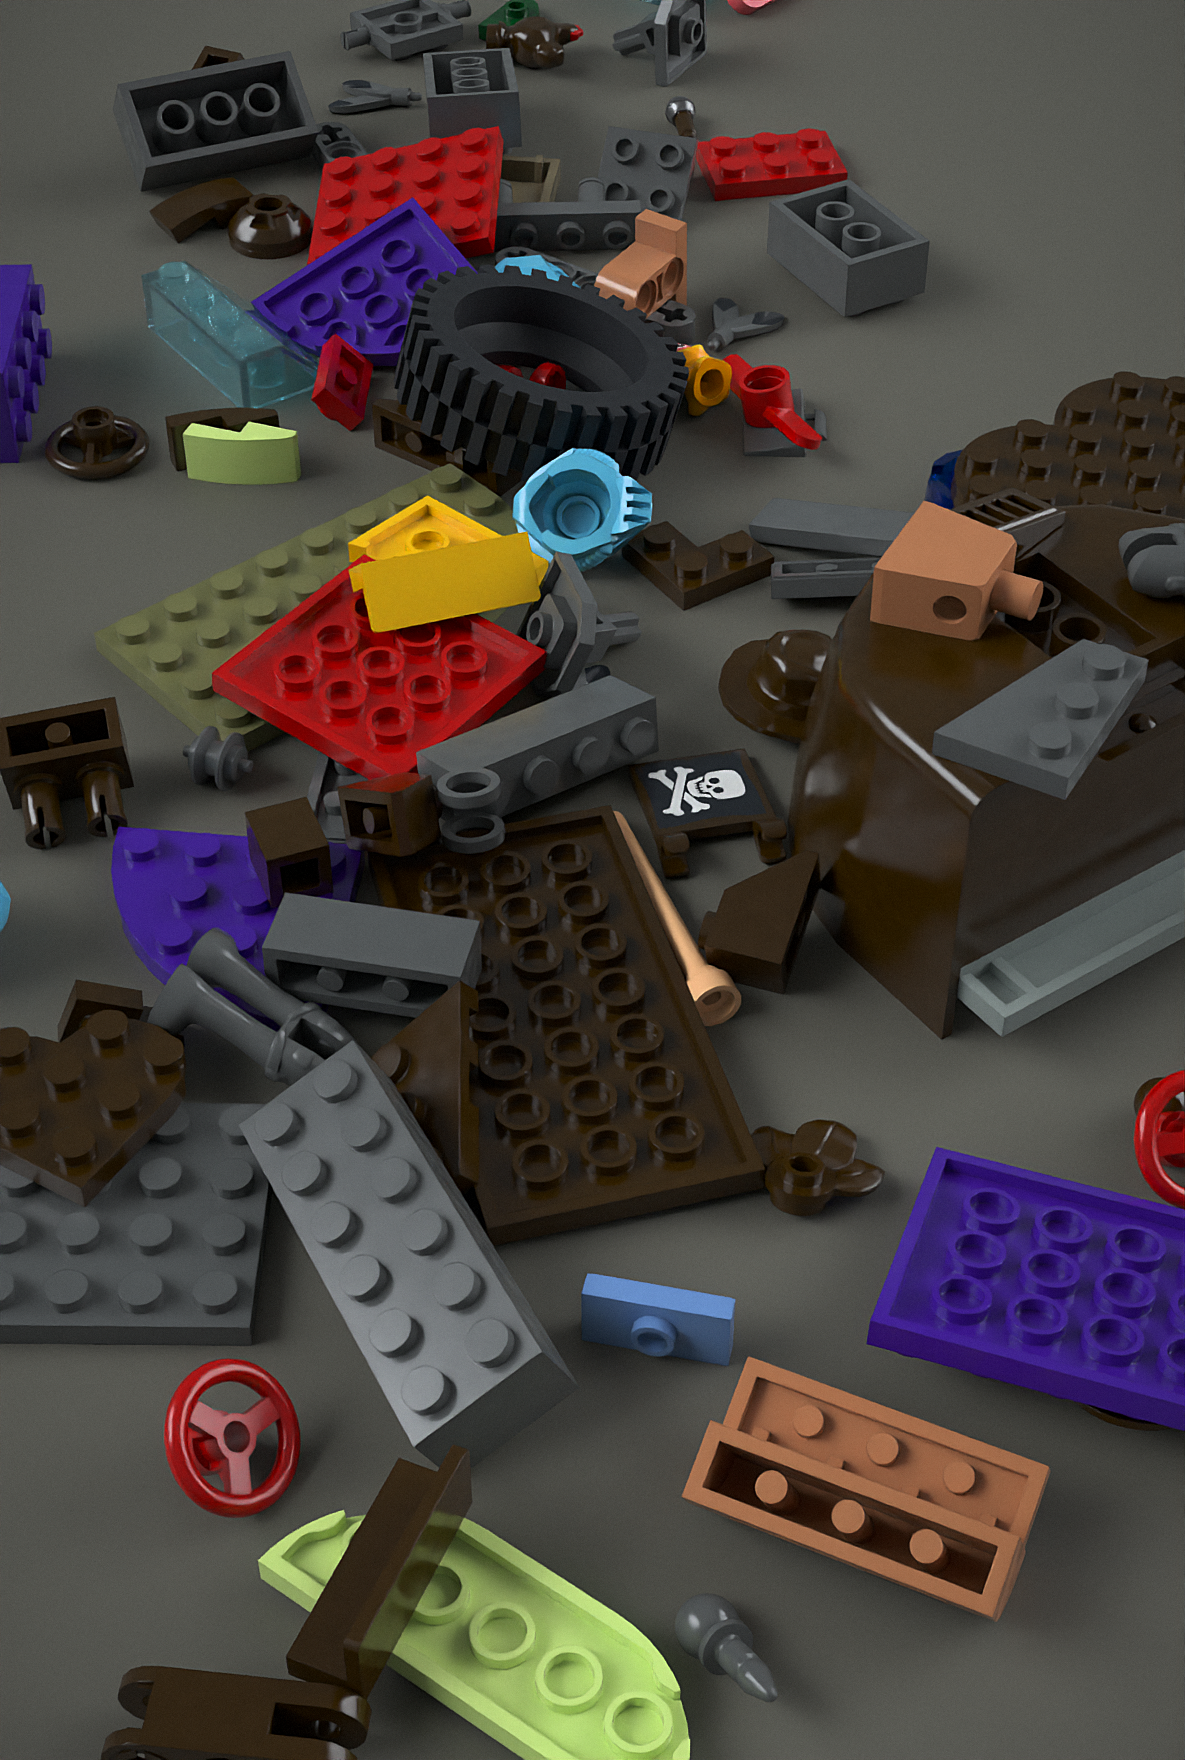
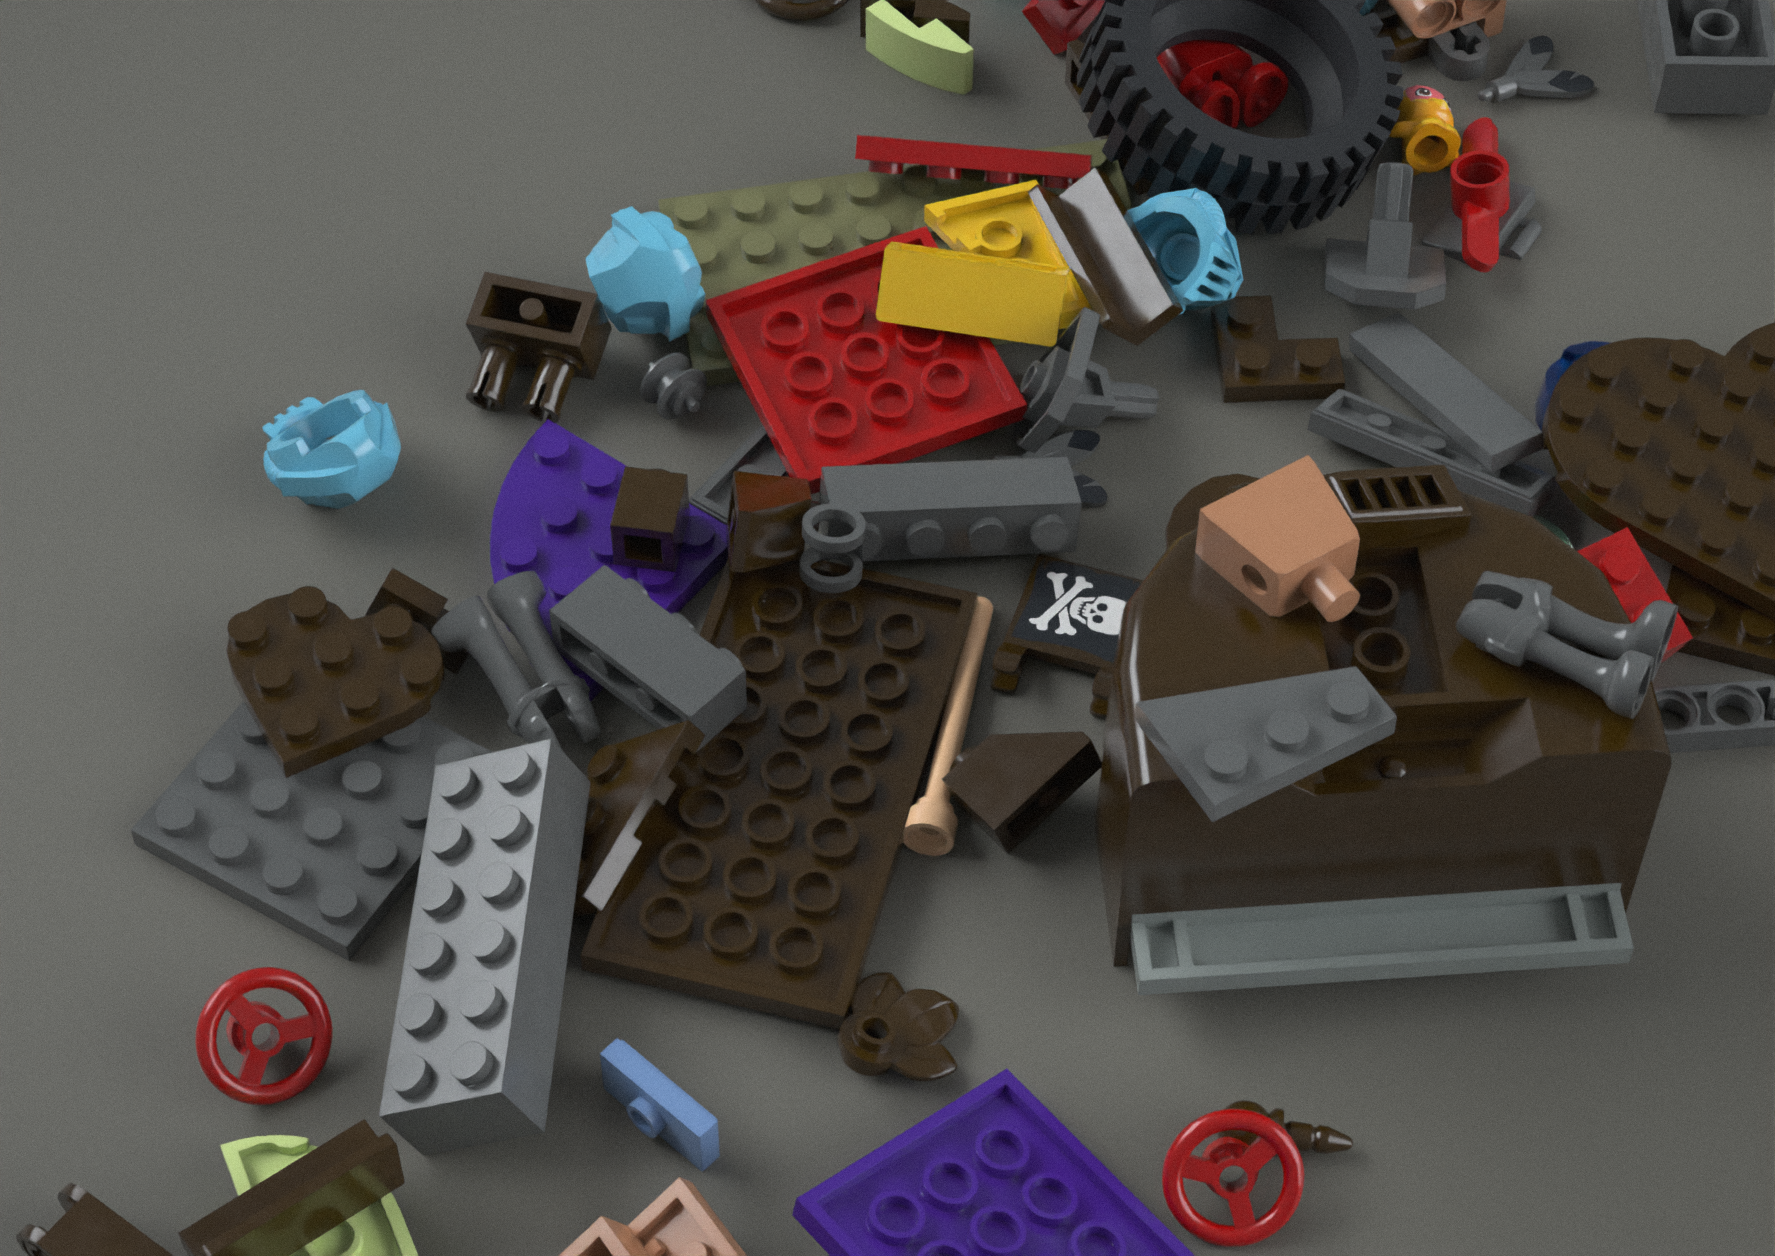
camera: 30 degrees right, 10 degrees up
(148, 667) = (646, 275): none -> medium azure helmet
(338, 507) = (948, 159): none -> red plate
(514, 509) = (1108, 257): none -> panel
(740, 462) = (1386, 265): none -> dark grey piece

